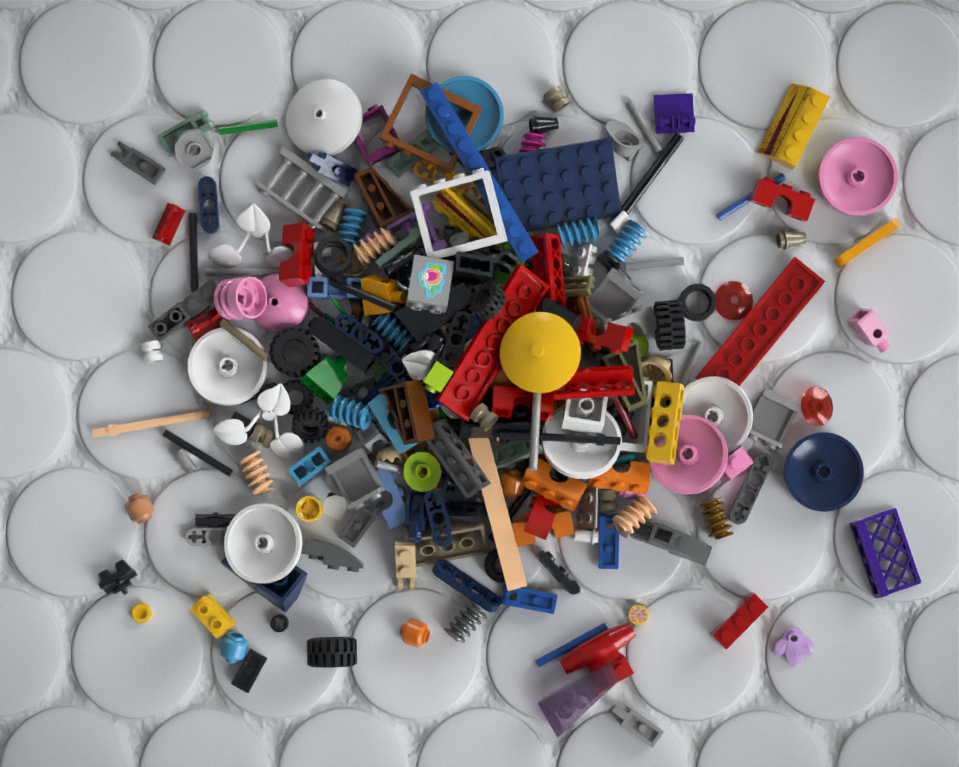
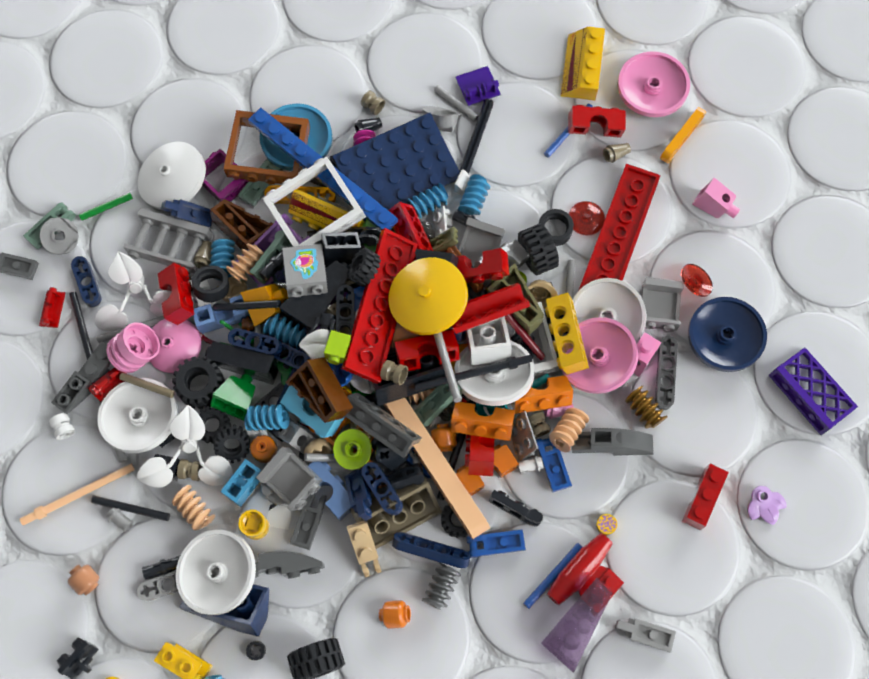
camera: 15 degrees left, 15 degrees down
(654, 263) = (503, 209): light grey bar -> none

